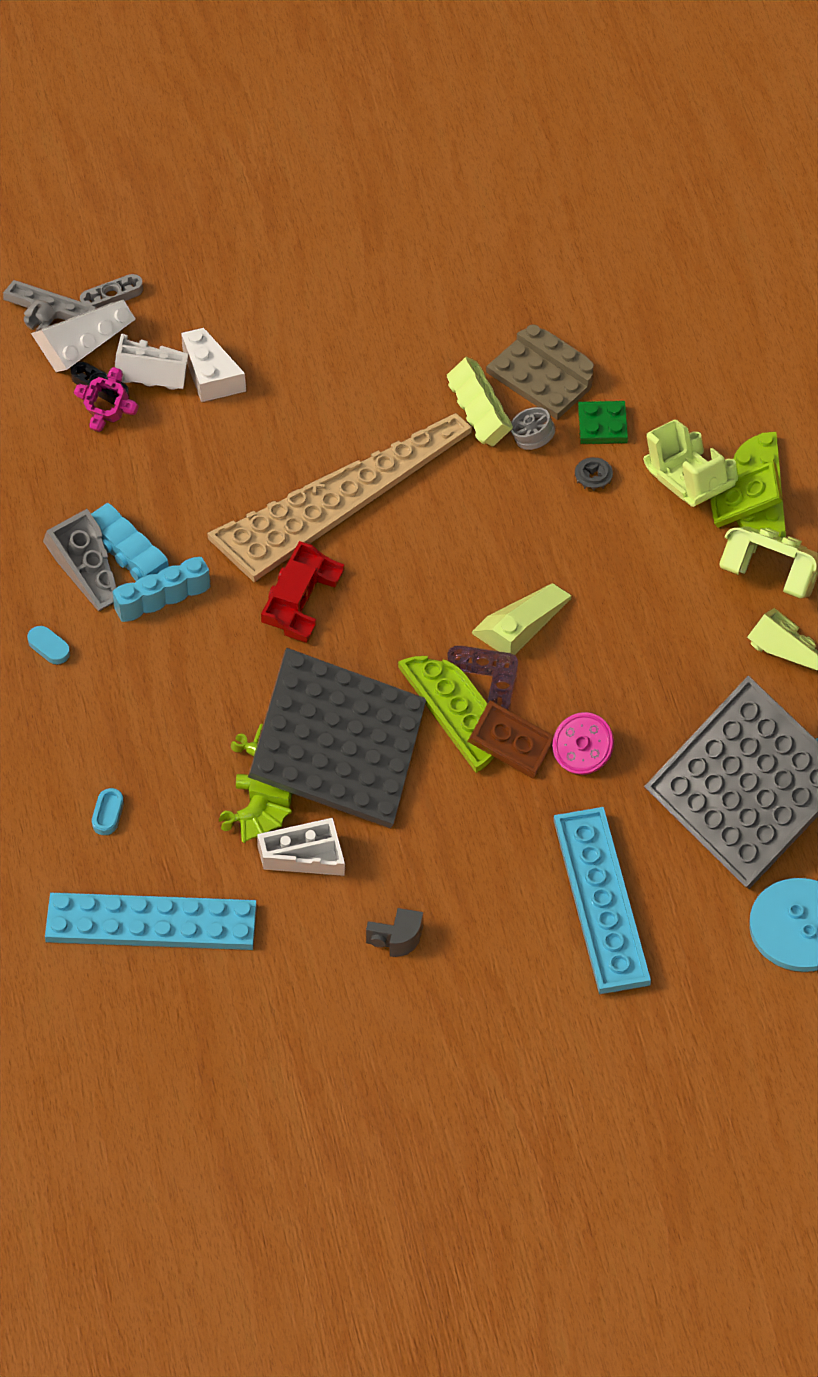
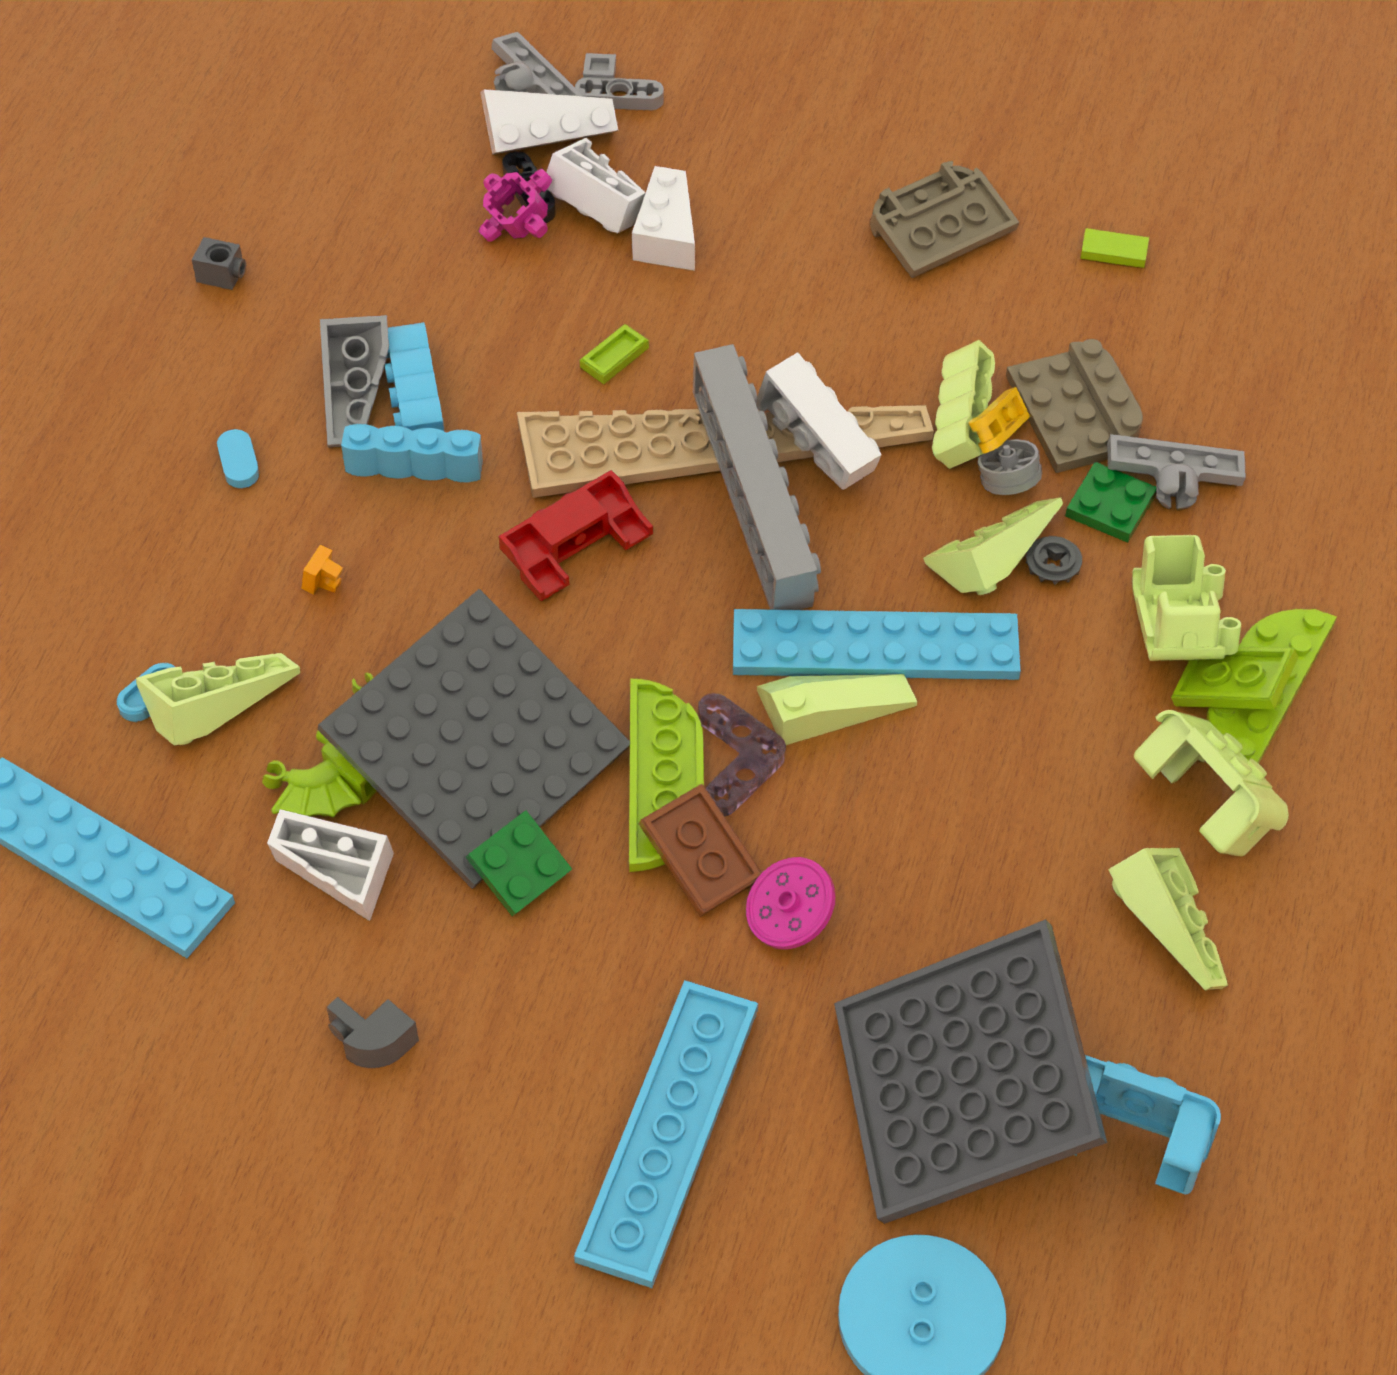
camera: 30 degrees right, 0 degrees up
(86, 280) = (599, 65): none -> light grey plate
(149, 797) = (202, 700): none -> yellowish green wedge
(161, 688) = (321, 572): none -> light orange tile
(236, 468) = (614, 353): none -> lime tile
(380, 287) = (940, 217): none -> dark tan plate
(392, 505) = (755, 479): none -> light grey brick
(404, 453) = (817, 421): none -> white wedge
(412, 798) = (518, 863): none -> green plate
(498, 259) = (1114, 248): none -> lime tile
(509, 402) = (999, 420): none -> yellow plate
(523, 573) = (876, 644): none -> medium azure plate
(555, 484) = (994, 549): none -> yellowish green wedge
(628, 382) = (1176, 466): none -> light grey plate

